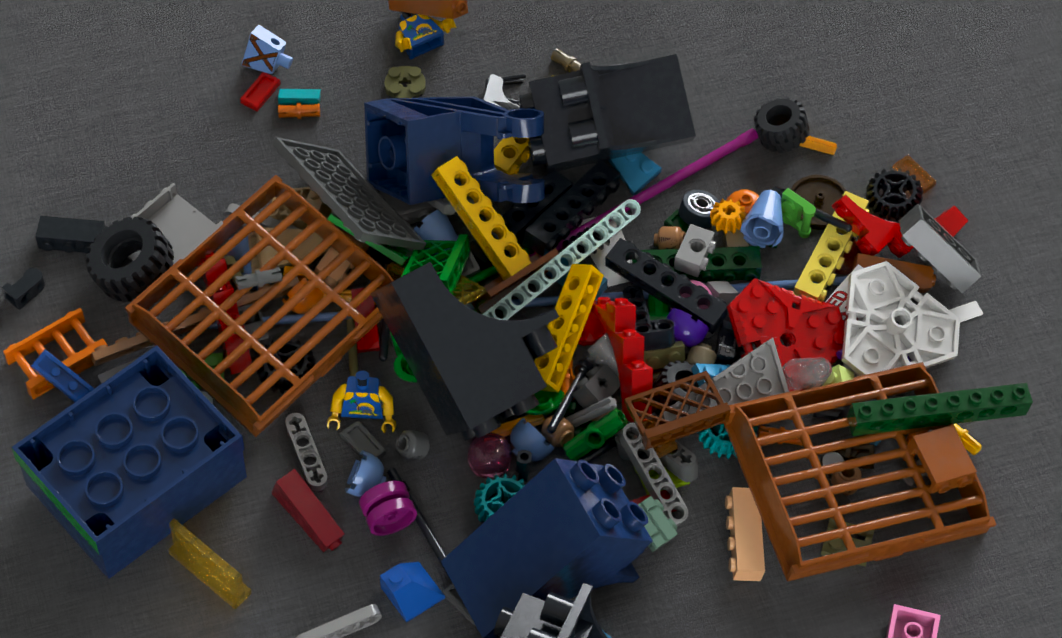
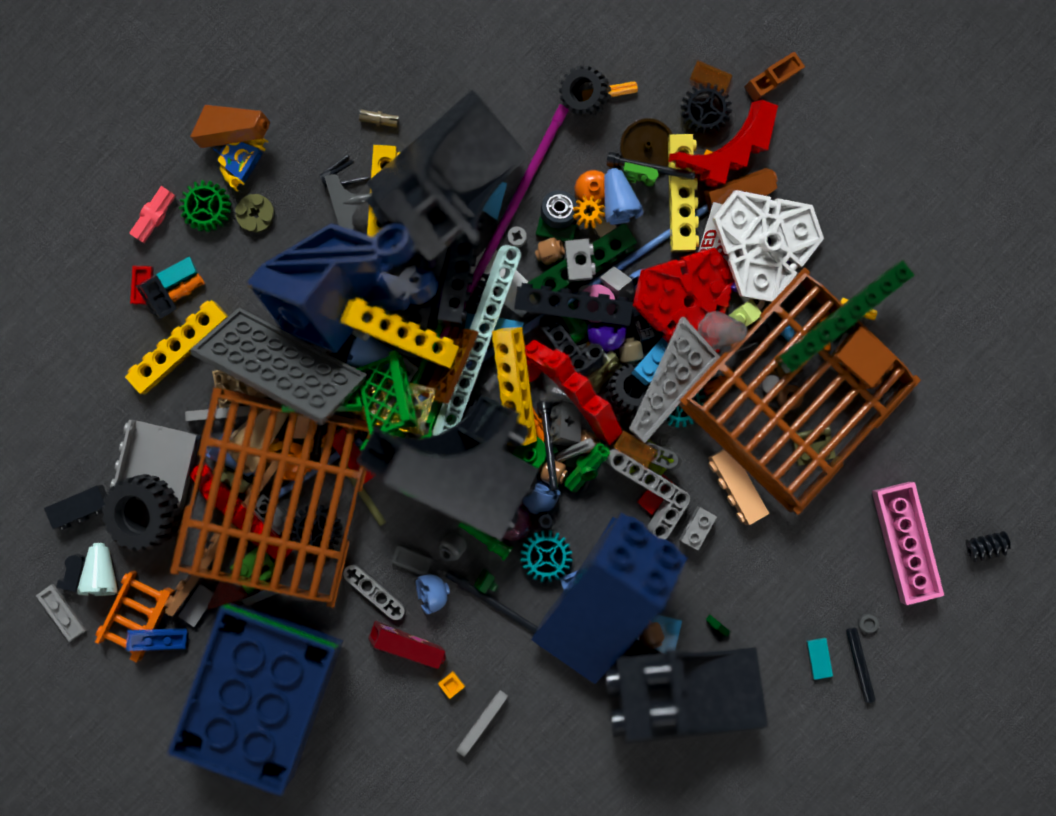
camera: 25 degrees left, 30 degrees up
(47, 298) = (98, 573): none -> light aqua cone
(207, 565) = (360, 727): clear yellow fence -> none
(243, 153) = (173, 358): none -> yellow brick
(258, 278) = (260, 493): dark grey pin -> none
(265, 51) = (125, 250): medium blue torso -> none
(268, 99) = (156, 297): none -> black brick
(312, 40) = (152, 214): none -> coral piece
(329, 575) = (451, 684): none -> light orange plate
(362, 398) = (393, 530): torso -> none
(363, 55) = (199, 209): none -> green gear
(387, 508) = (463, 612): magenta wheel -> none
(410, 589) = (517, 661): blue slope -> none
(427, 496) = (486, 581): none -> dark green tile
(456, 465) = (493, 543): none -> green pin
(645, 220) = (518, 239): none -> light grey wheel
(658, 526) = (669, 524): sand green brick -> none
(680, 554) = (697, 528): none -> light grey brick
(682, 426) = (656, 435): reddish brown fence -> none
(939, 248) = (772, 155): brick -> none
(967, 311) = (807, 190): white sticker -> none
(979, 199) = (774, 76): none -> dark orange slope

